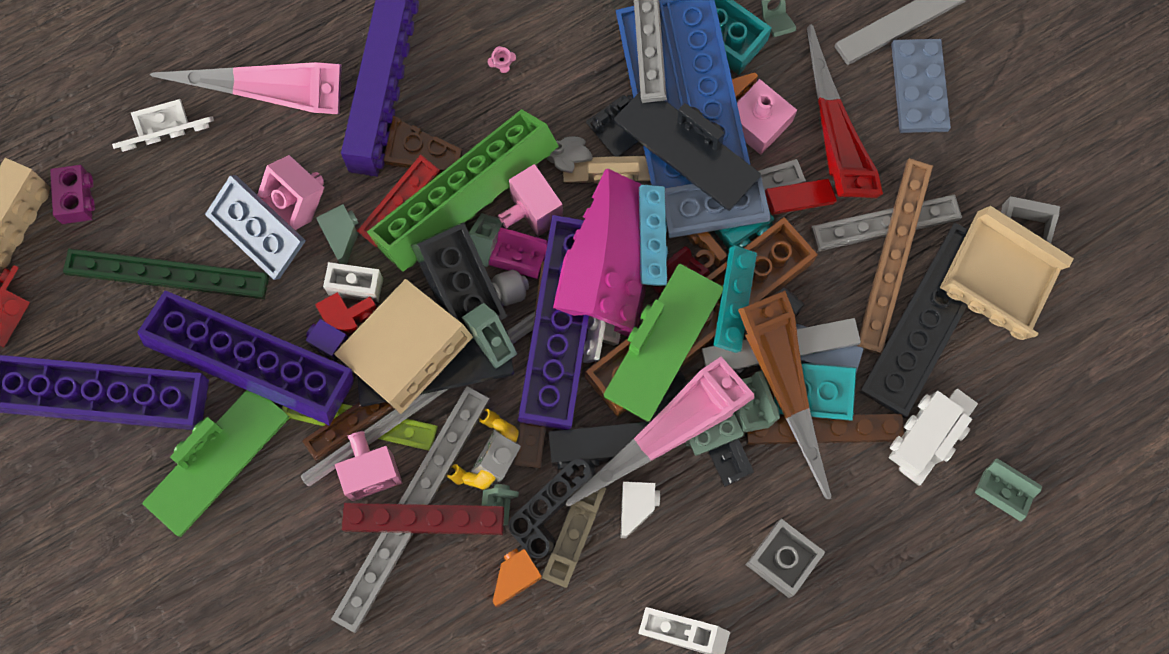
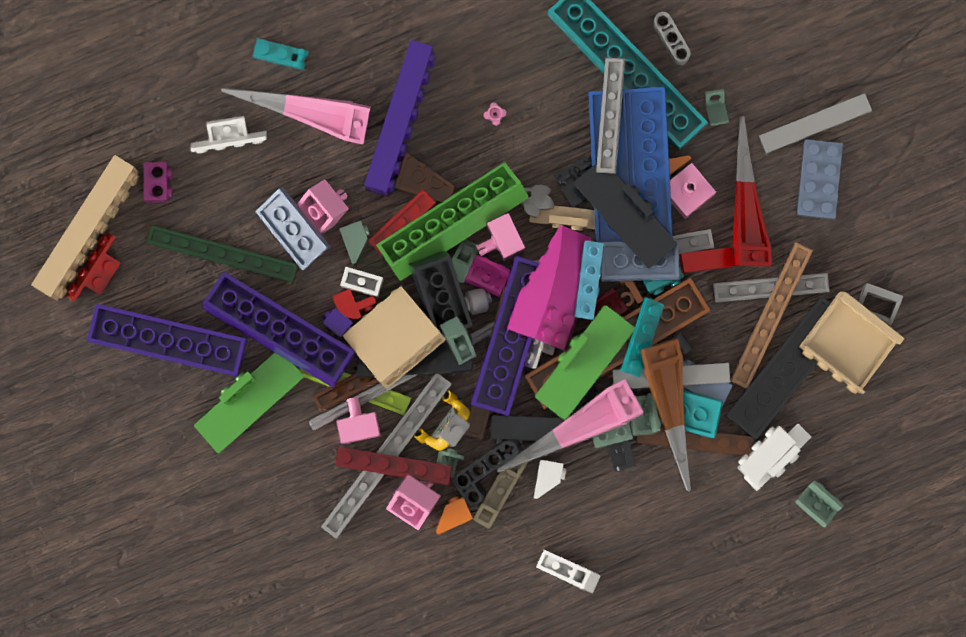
camera: 15 degrees right, 10 degrees up
(222, 23) = (279, 54): none -> teal plate
(455, 564) = (413, 501): none -> bright pink brick
(785, 558) = (648, 530): light grey brick -> none

